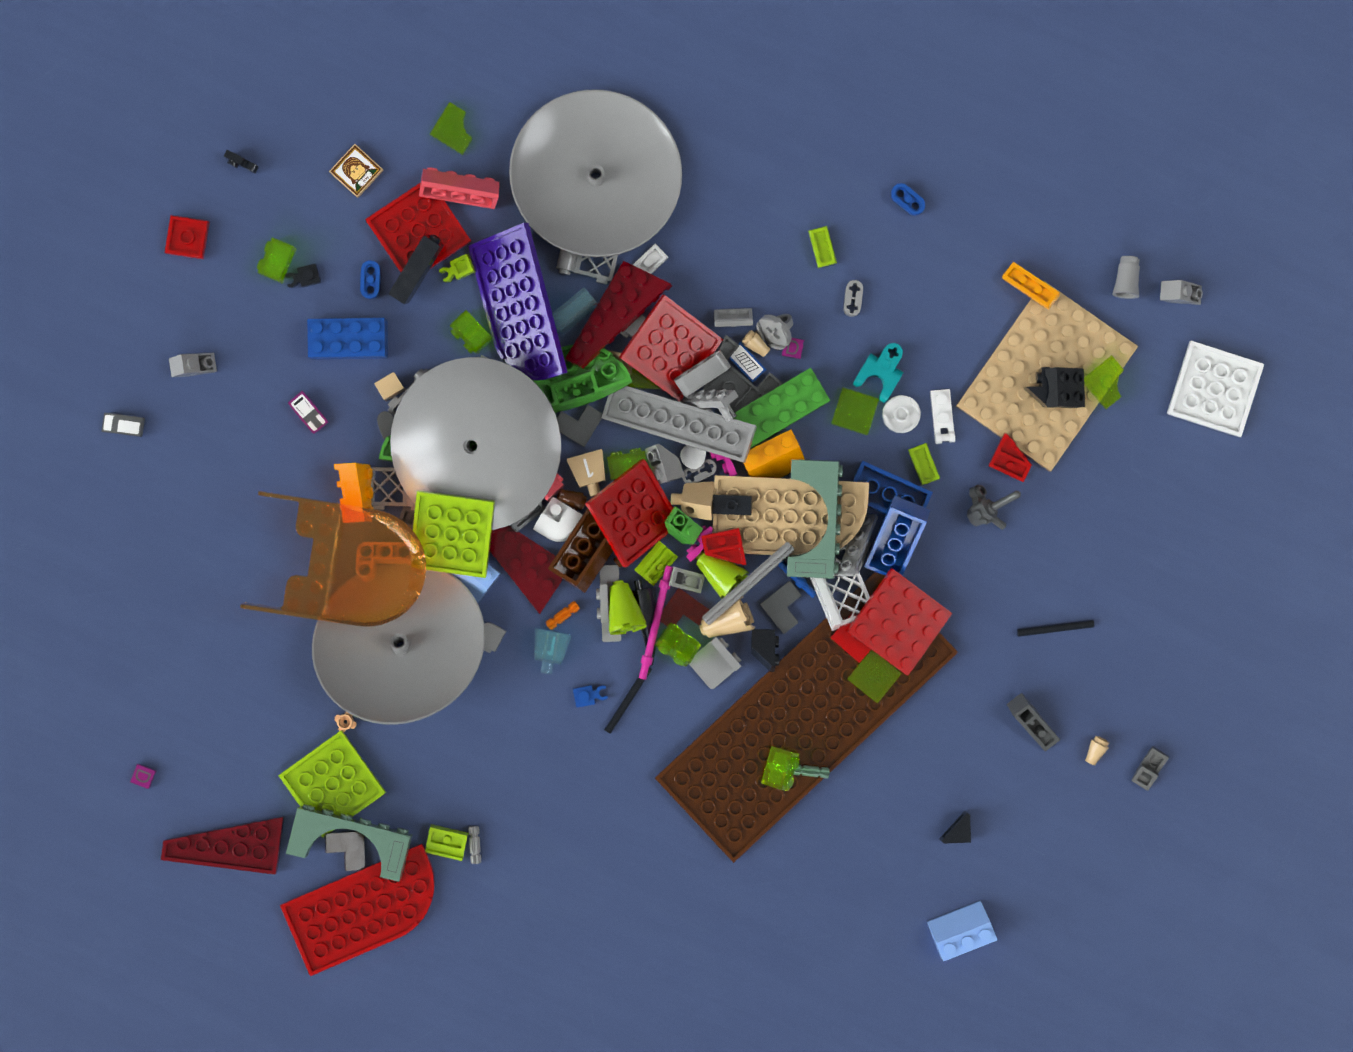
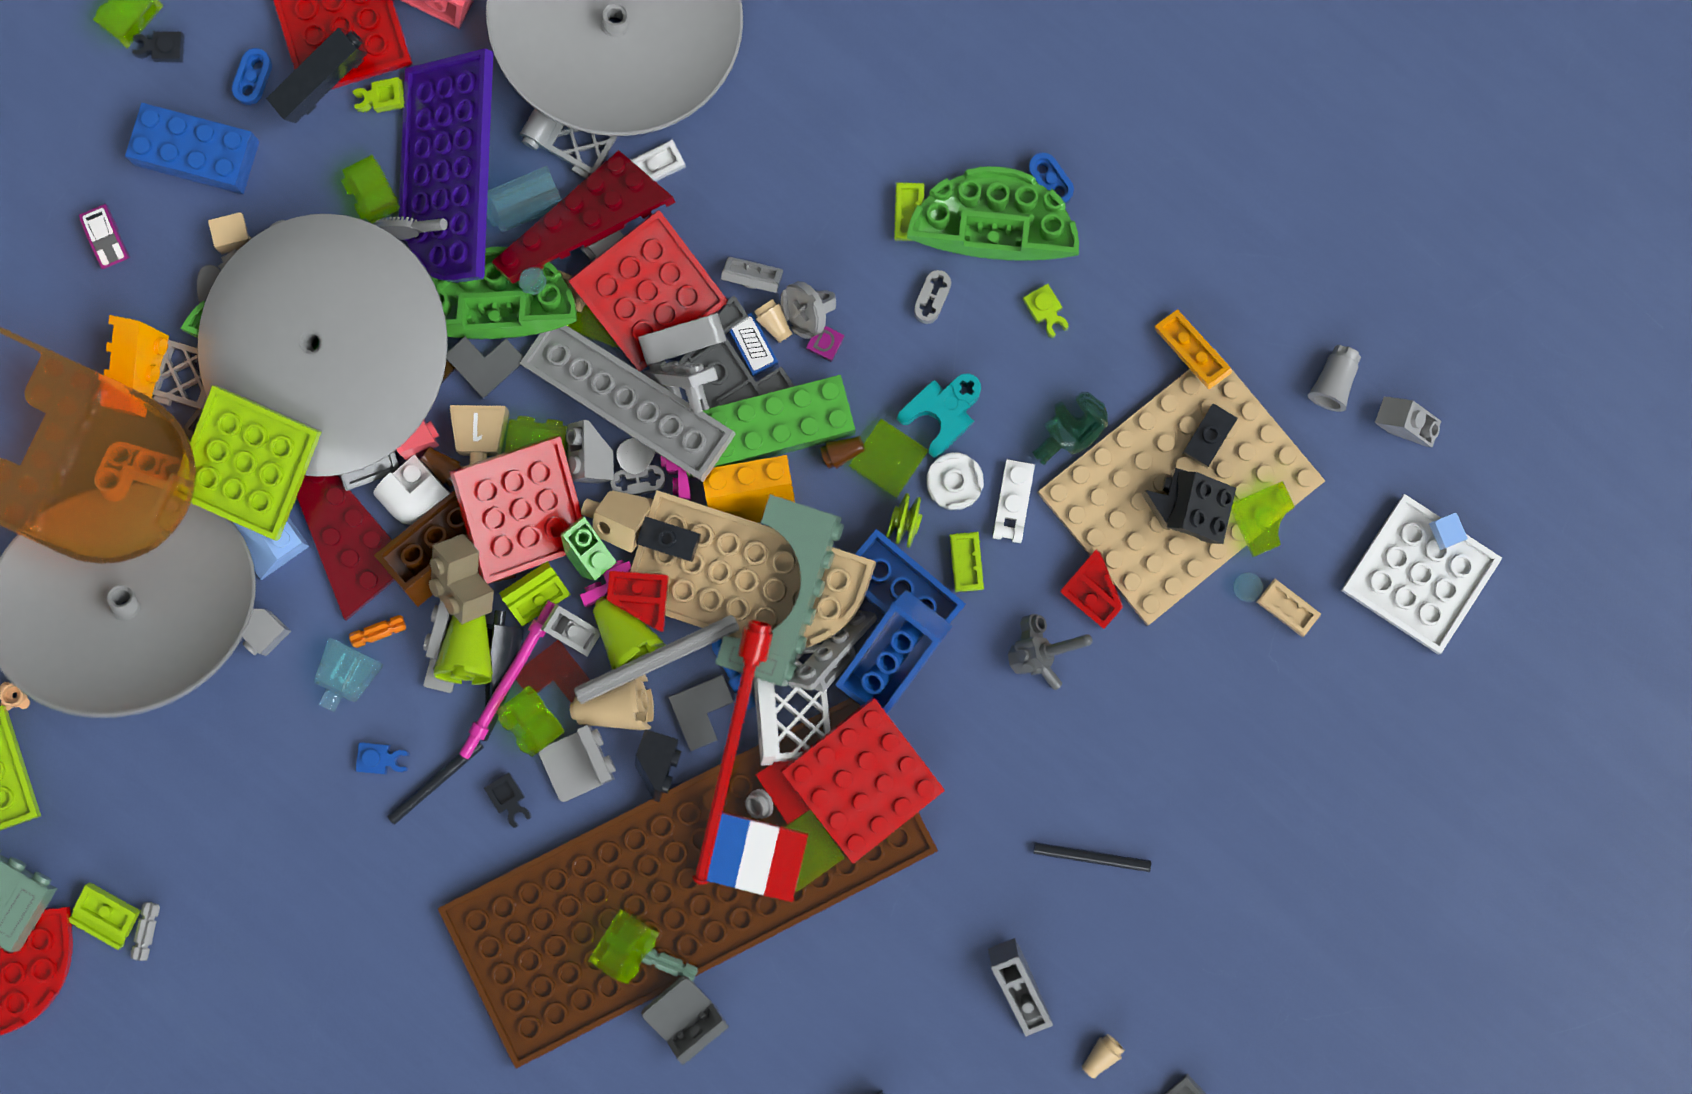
camera: 15 degrees right, 5 degrees down
(504, 352) = (406, 229): none -> light grey piece
(596, 363) = (532, 281): none -> clear light blue plate
(607, 569) = (457, 579): none -> dark tan brick
(676, 695) = (505, 796): none -> black plate
(824, 416) = (841, 451): none -> reddish brown cone
(830, 802) = (685, 1018): none -> dark grey bracket
(837, 686) = (738, 848): none -> flag
(838, 655) = (759, 804): none -> light grey plate
(878, 447) = (905, 520): none -> lime piece
(880, 234) = (995, 217): none -> bright green brick
(926, 284) = (1044, 306): none -> lime plate
(968, 361) = (1073, 432): none -> clear green piece
(1057, 338) = (1210, 435): none -> black plate
(1107, 428) = (1247, 587): none -> clear light blue plate
(1136, 434) = (1288, 607): none -> tan plate
(1225, 357) = (1448, 531): none -> light blue slope

